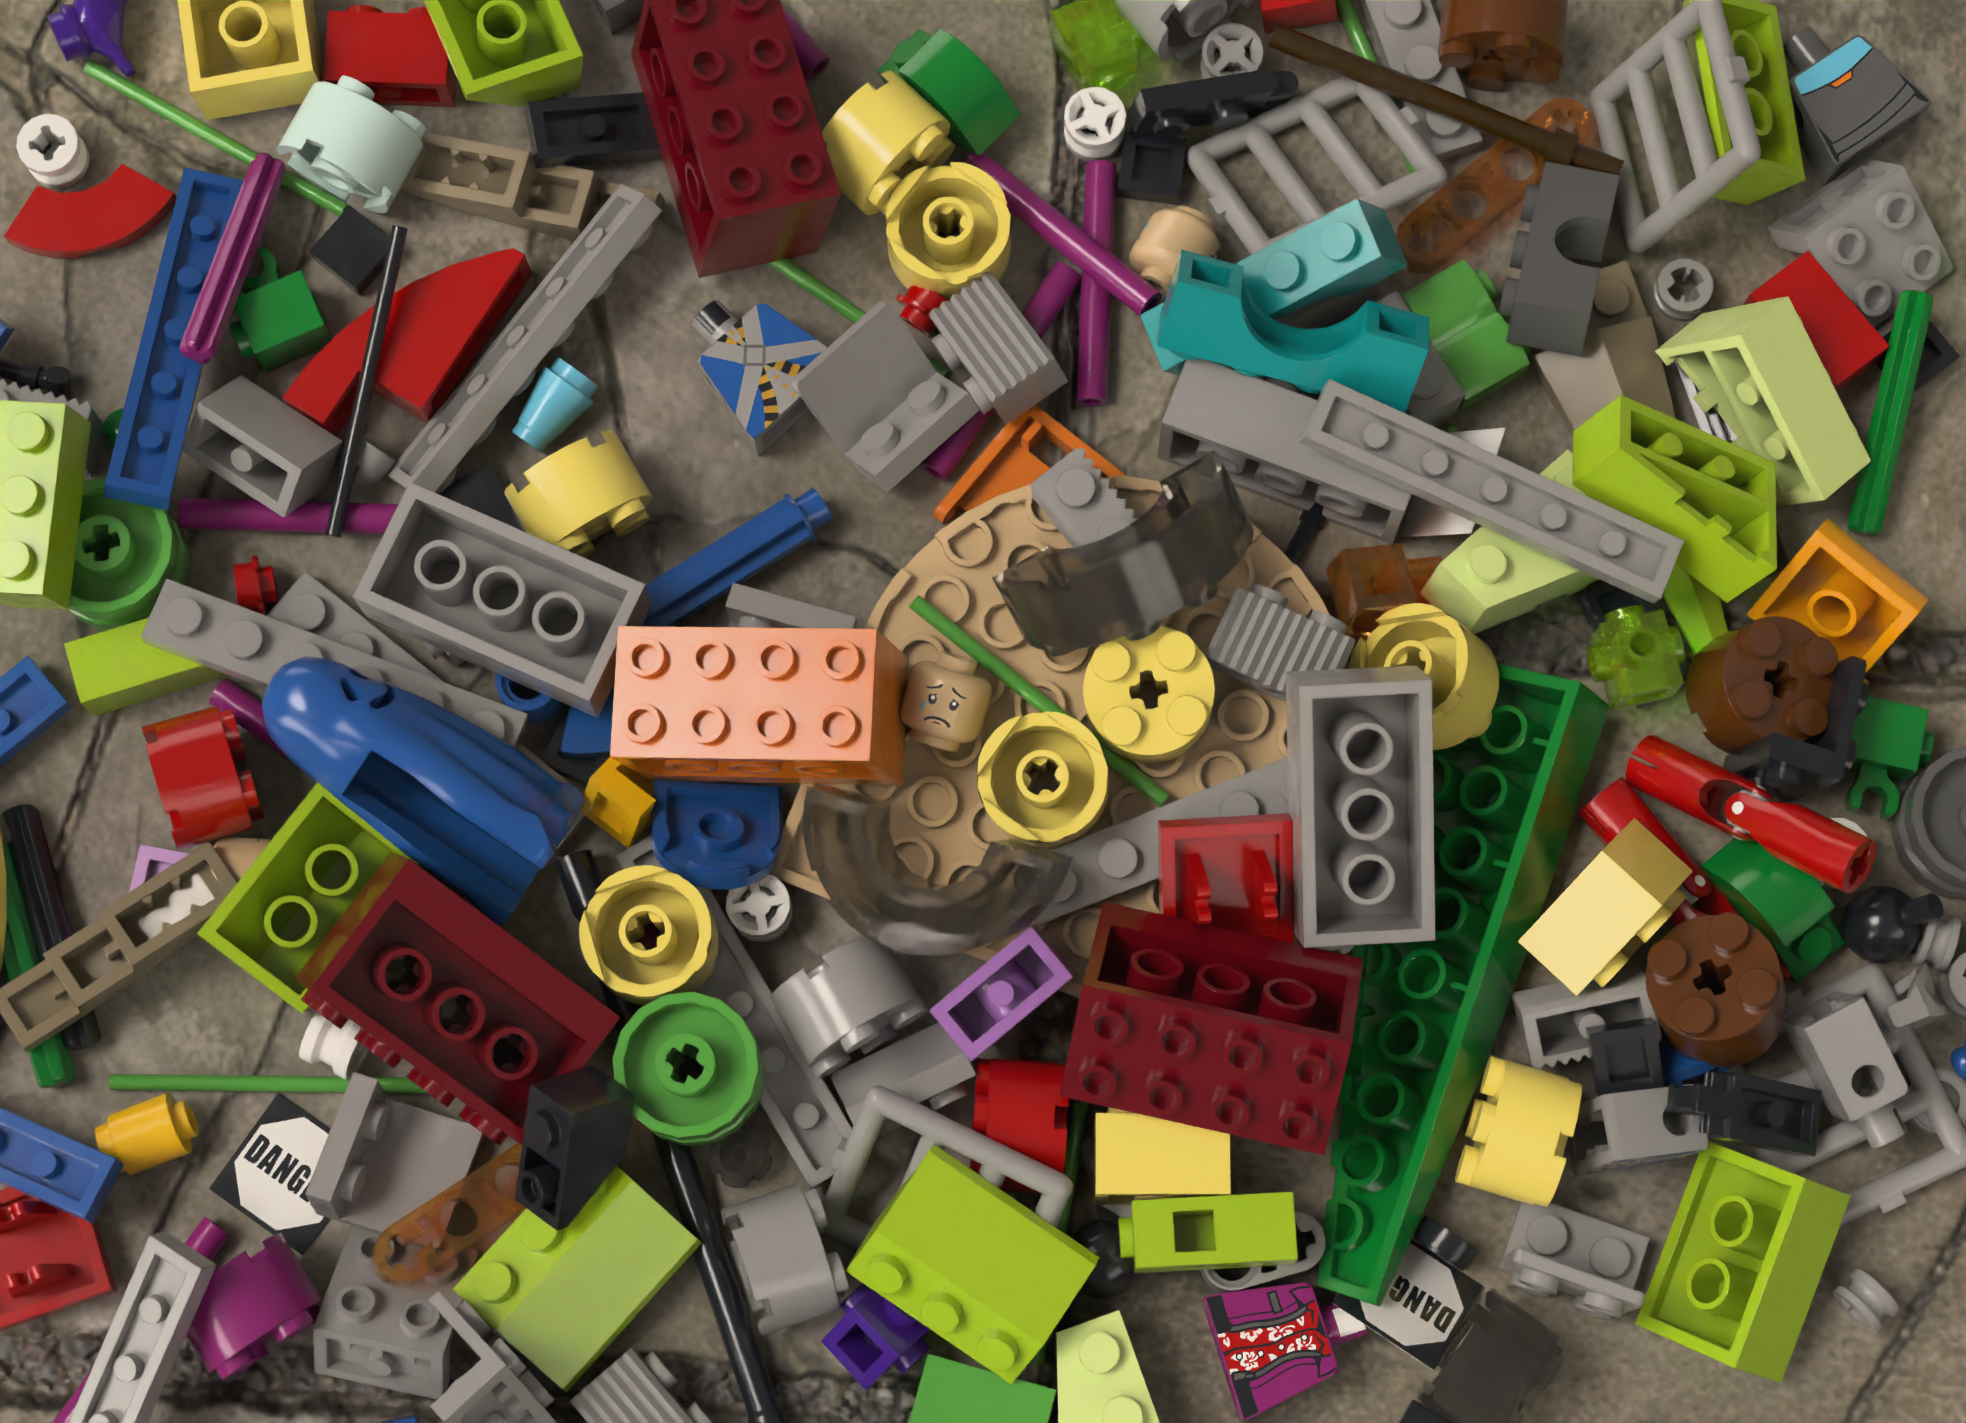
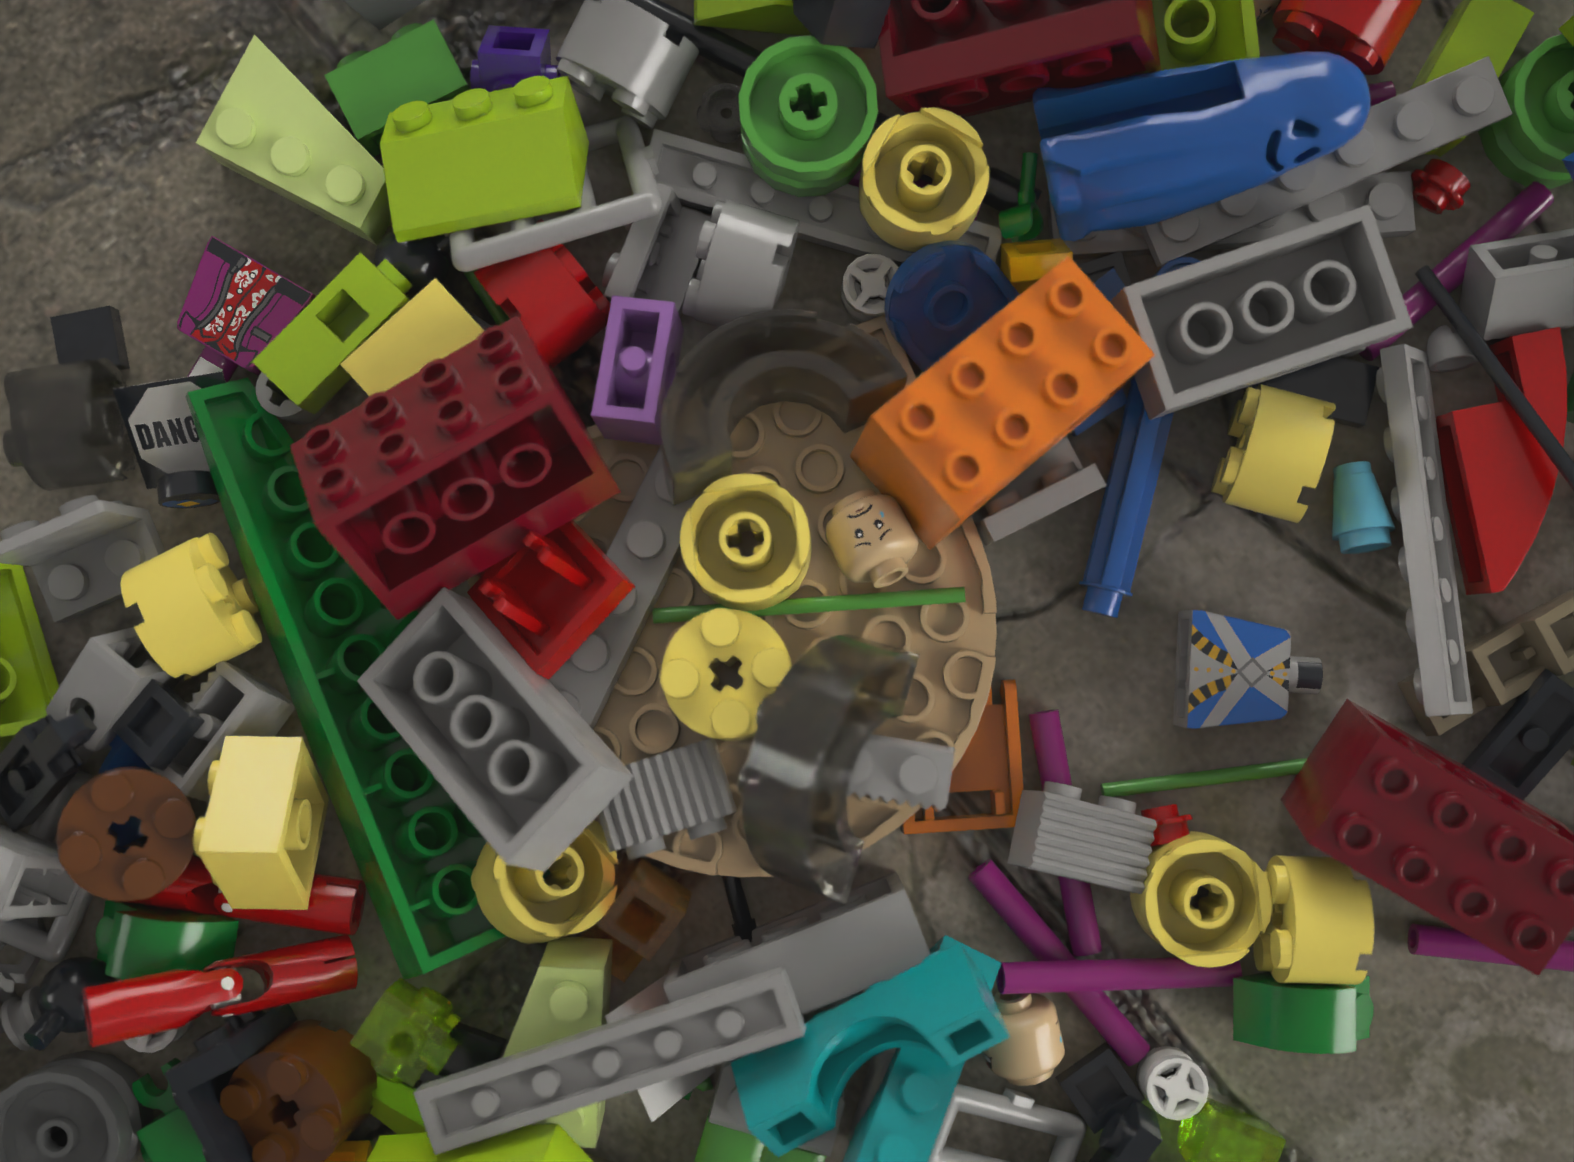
camera: 135 degrees right, 10 degrees up
(591, 847) = (1025, 220): none -> green hand
(882, 398) = (1130, 728): light grey bracket -> none

